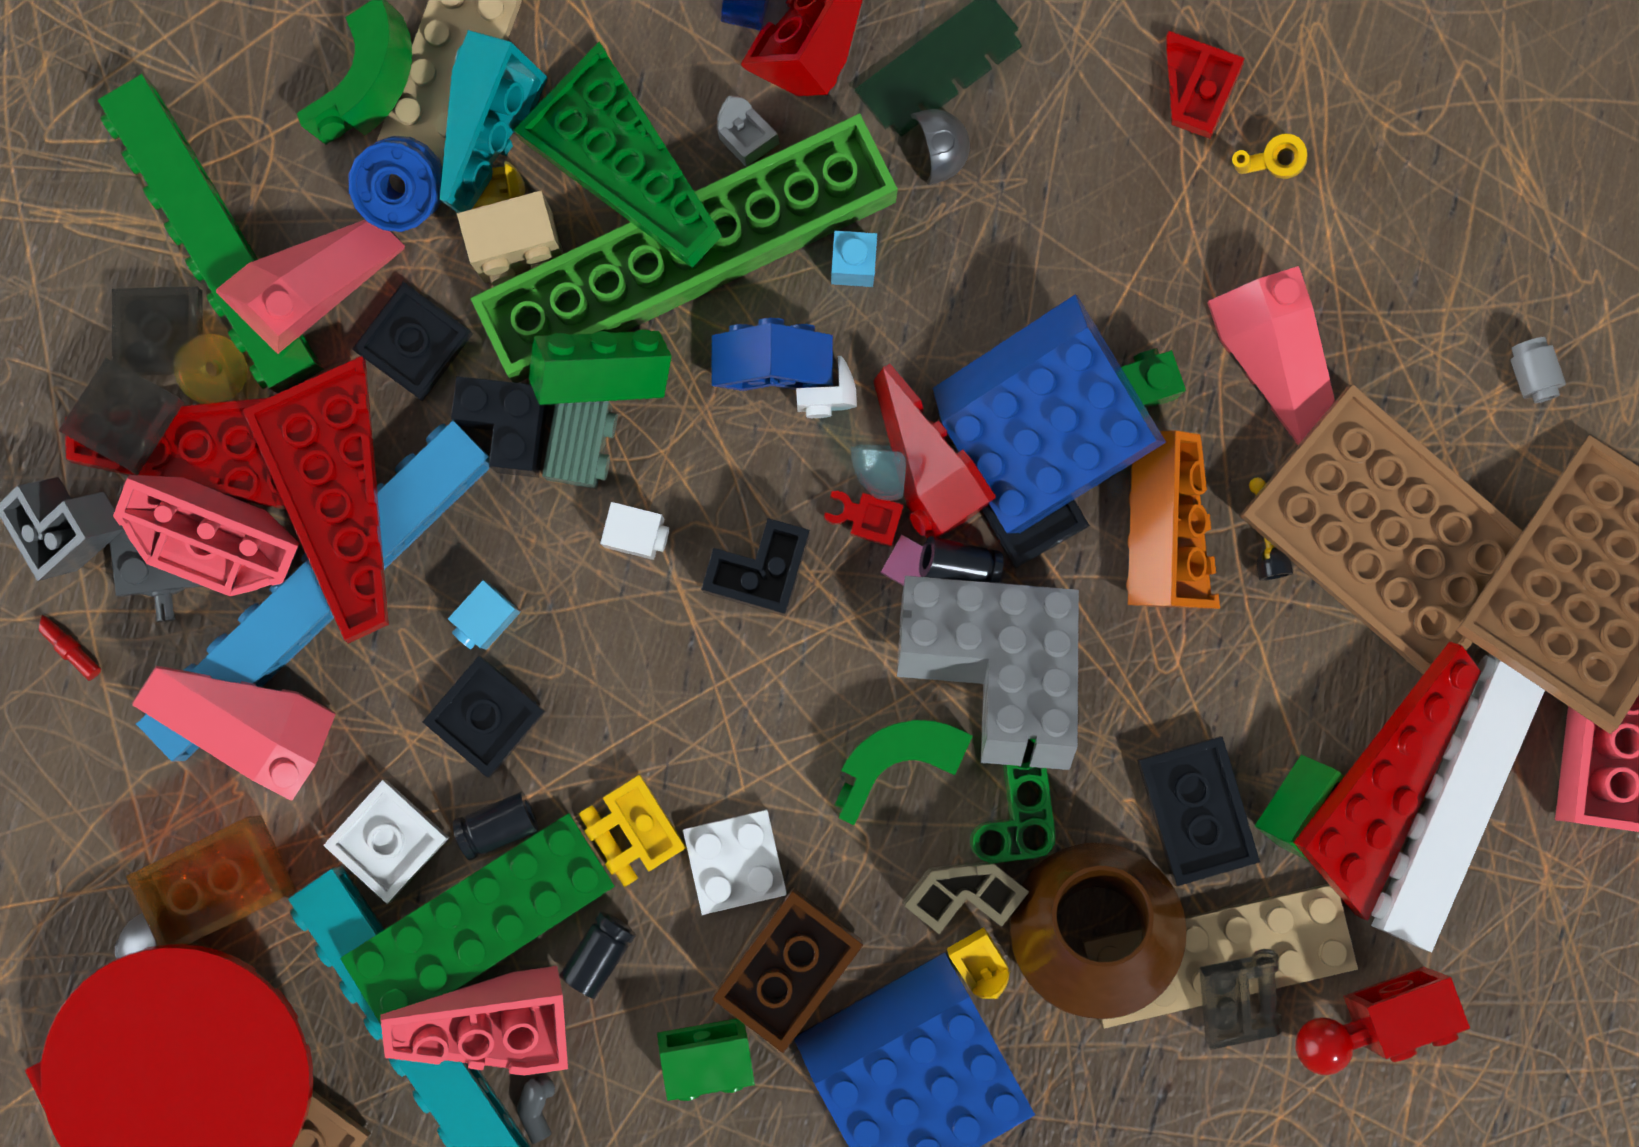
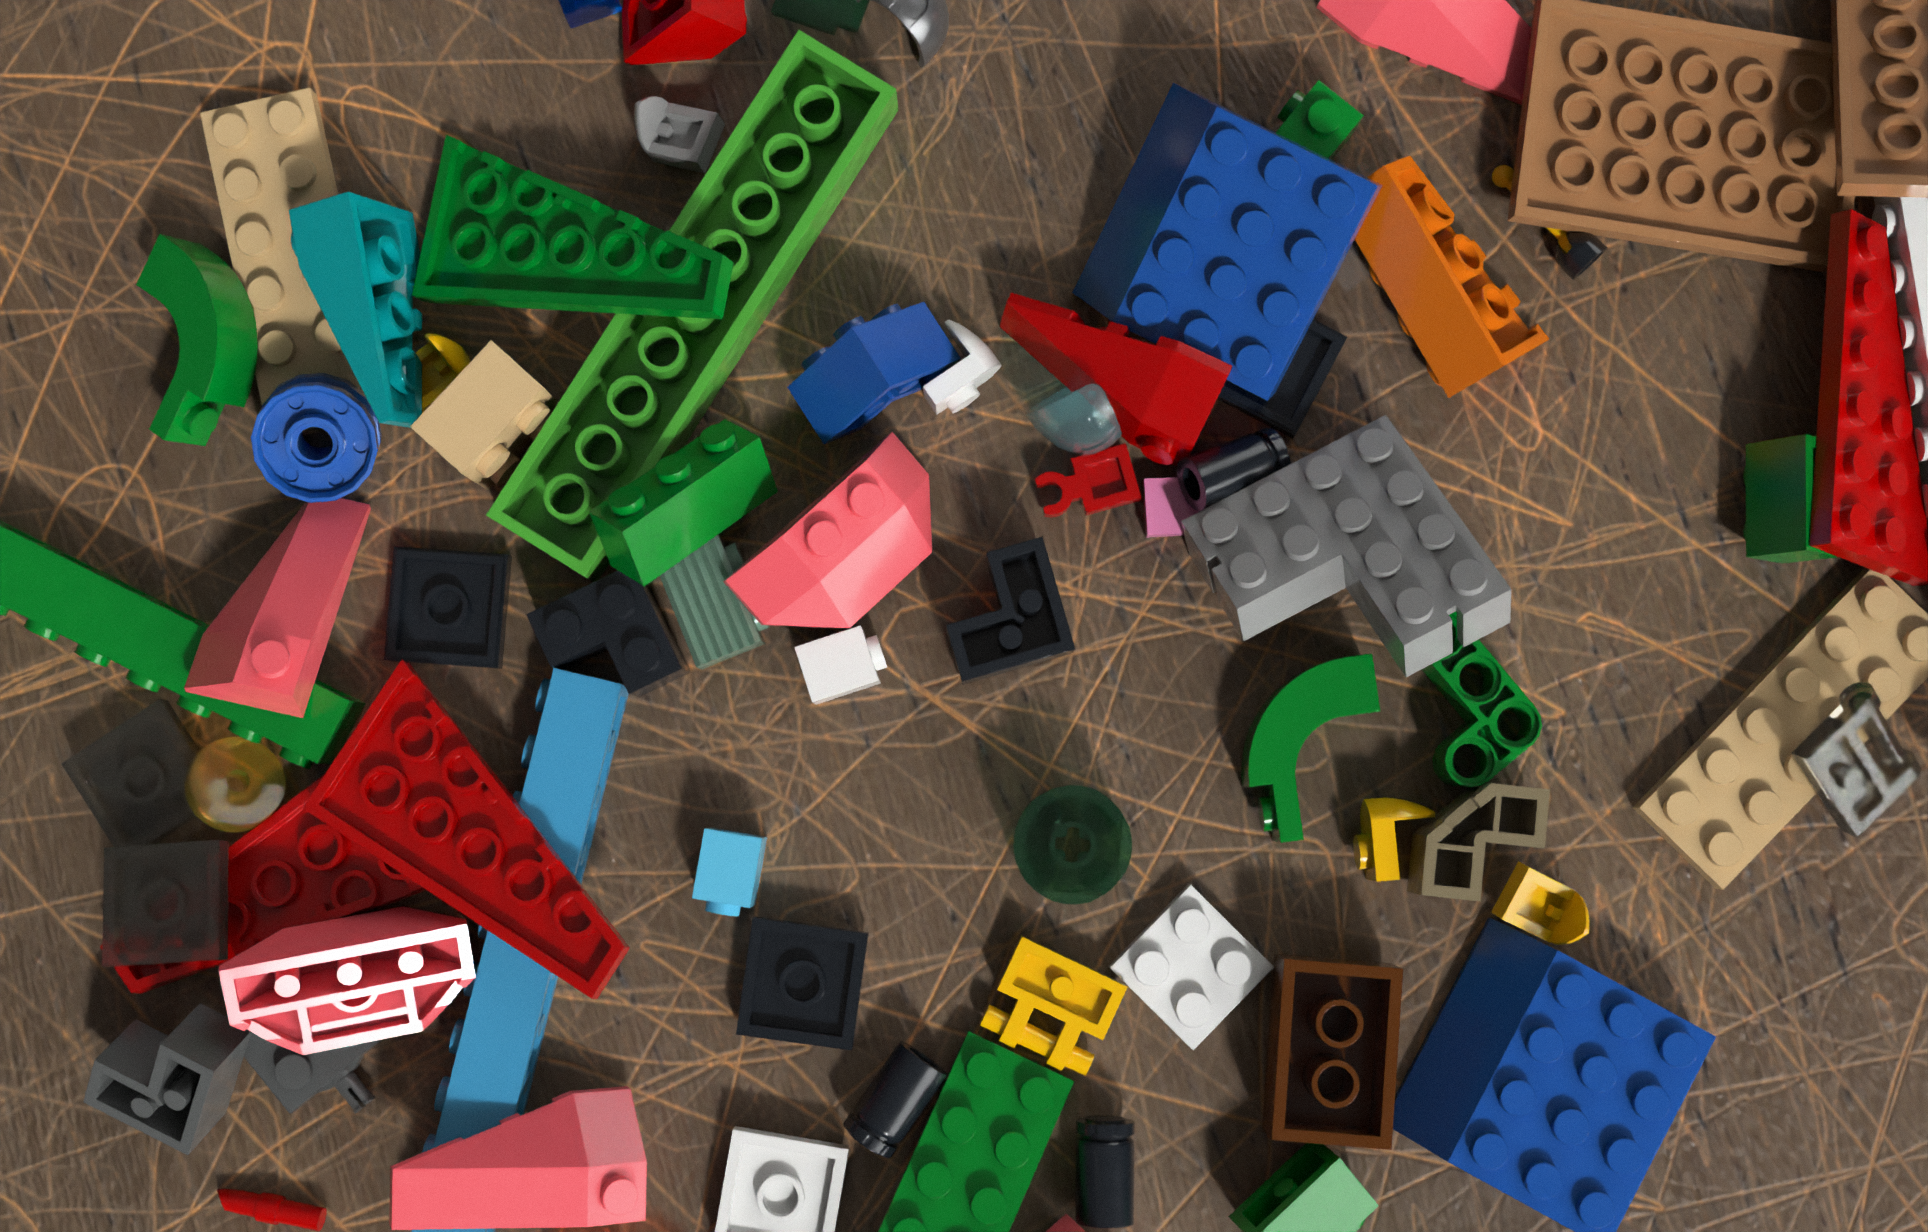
camera: 30 degrees left, 0 degrees up
(681, 738) = (1093, 869): none -> clear green brick
(684, 457) = (843, 545): none -> coral wedge
(854, 258) = (893, 200): medium azure brick -> none
(899, 860) = (1376, 845): none -> yellow plate
(1086, 985) = (1638, 856): reddish brown cone -> none
(1198, 811) = (1671, 579): black plate -> none

